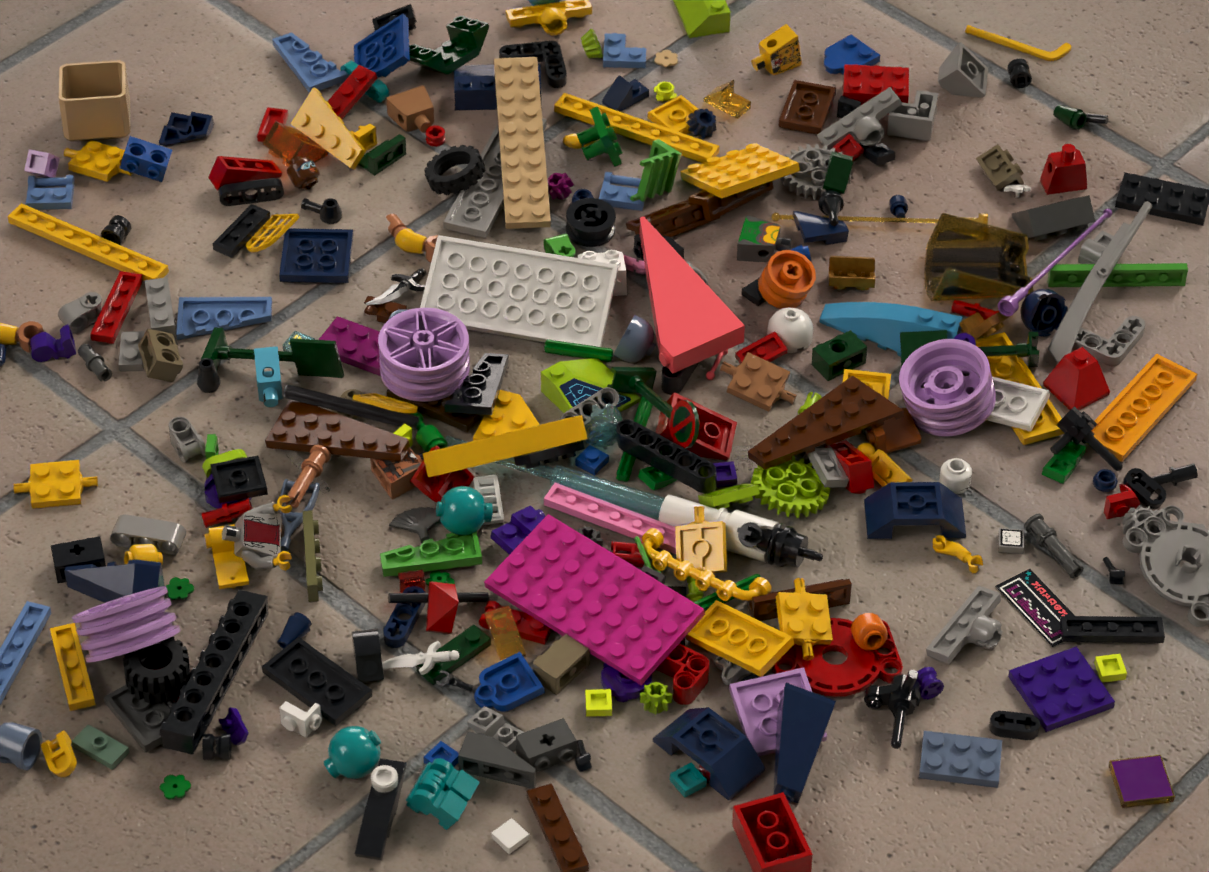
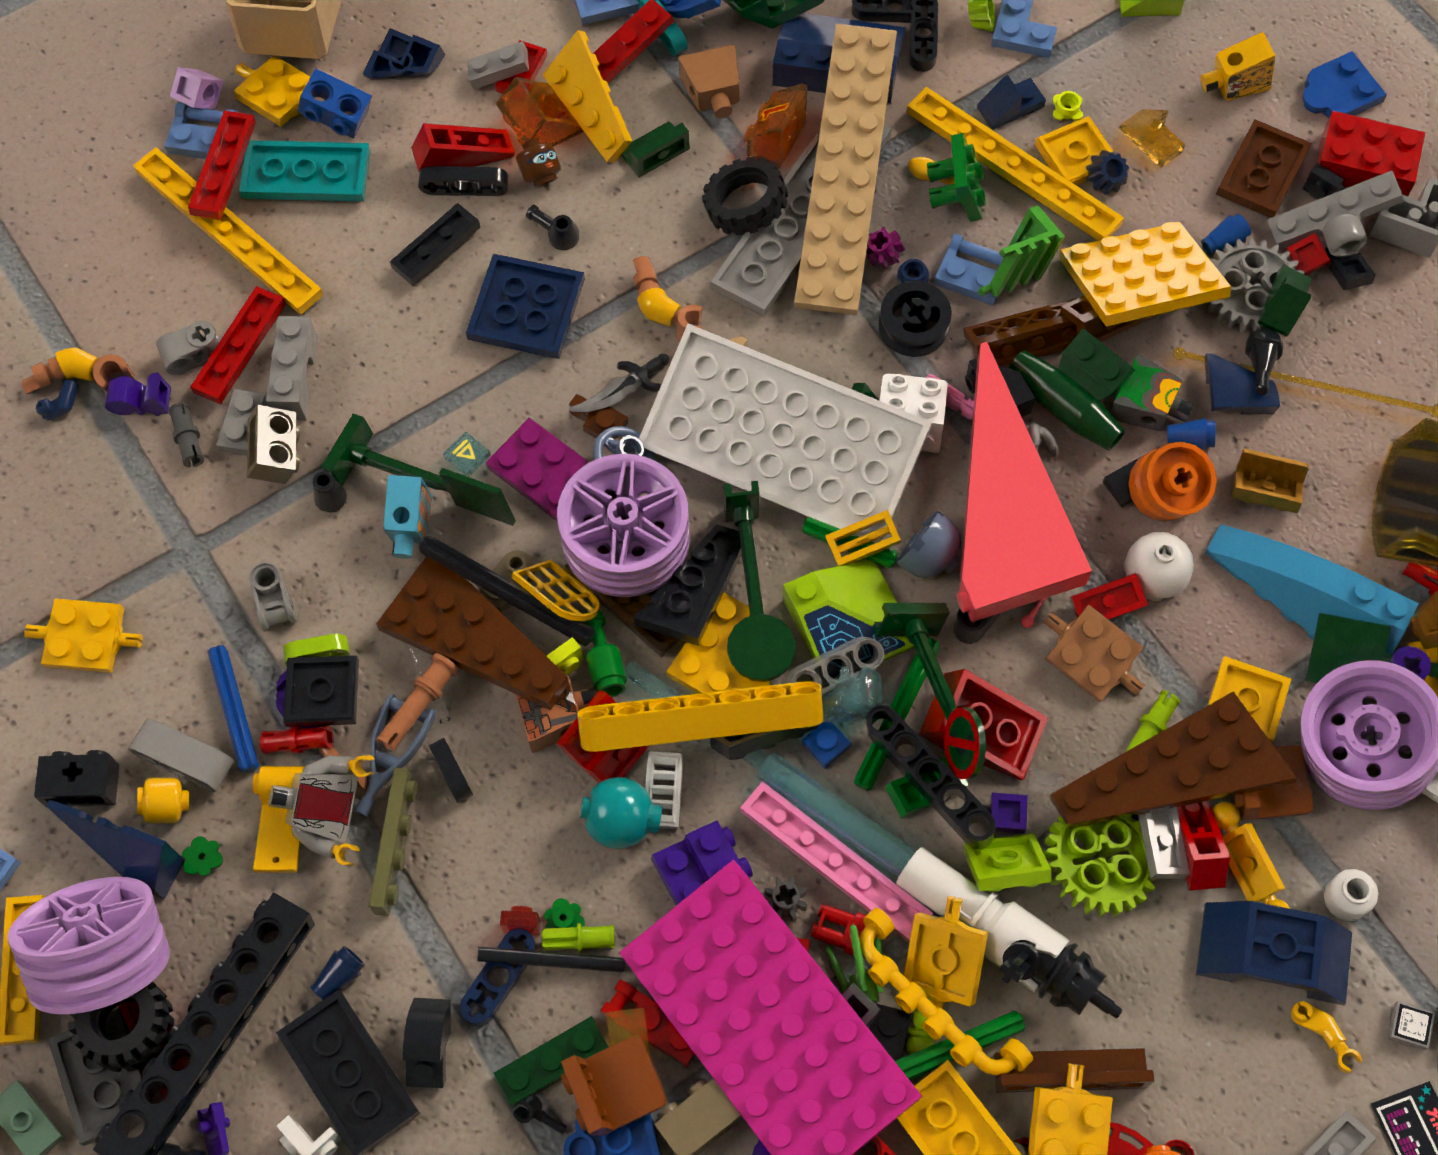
camera: 15 degrees right, 20 degrees up
(75, 204) = (222, 165): none -> red plate
(117, 229) = (269, 215): black wheel -> none
(134, 202) = (305, 171): none -> teal plate
(176, 506) = (233, 709): none -> blue axle
(201, 314) = (367, 382): medium blue wing -> none
(211, 446) = (302, 622): bright green tile -> none
(256, 122) = (498, 65): none -> light grey plate
(269, 240) = (457, 278): yellow window -> none
(339, 512) = (450, 770): none -> black beam
(366, 136) = (637, 115): yellow tile -> none
(417, 520) = (557, 802): dark grey hand -> none
(428, 658) = (491, 1069): white piece -> none
(430, 555) = (563, 875): bright green wing -> none
(435, 136) = (728, 120): red bush -> none
(441, 607) = (550, 980): red slope -> none
(463, 584) = (578, 938): none -> lime axle
(467, 124) = (778, 125): none -> clear orange slope
(501, 647) = (613, 1086): none -> dark orange bracket
(530, 407) = (759, 644): none -> dark green piece
(559, 245) = (861, 361): bright green piece -> none
(589, 346) = (857, 527): none -> yellow tile
(666, 58) = (1081, 48): tan plant -> none
(711, 241) = (1074, 391): none -> dark green plate
(792, 142) = (1228, 232): none -> blue cone
(837, 354) = (1207, 640): dark green brick -> none
(898, 206) = (1361, 369): dark blue cylinder -> none

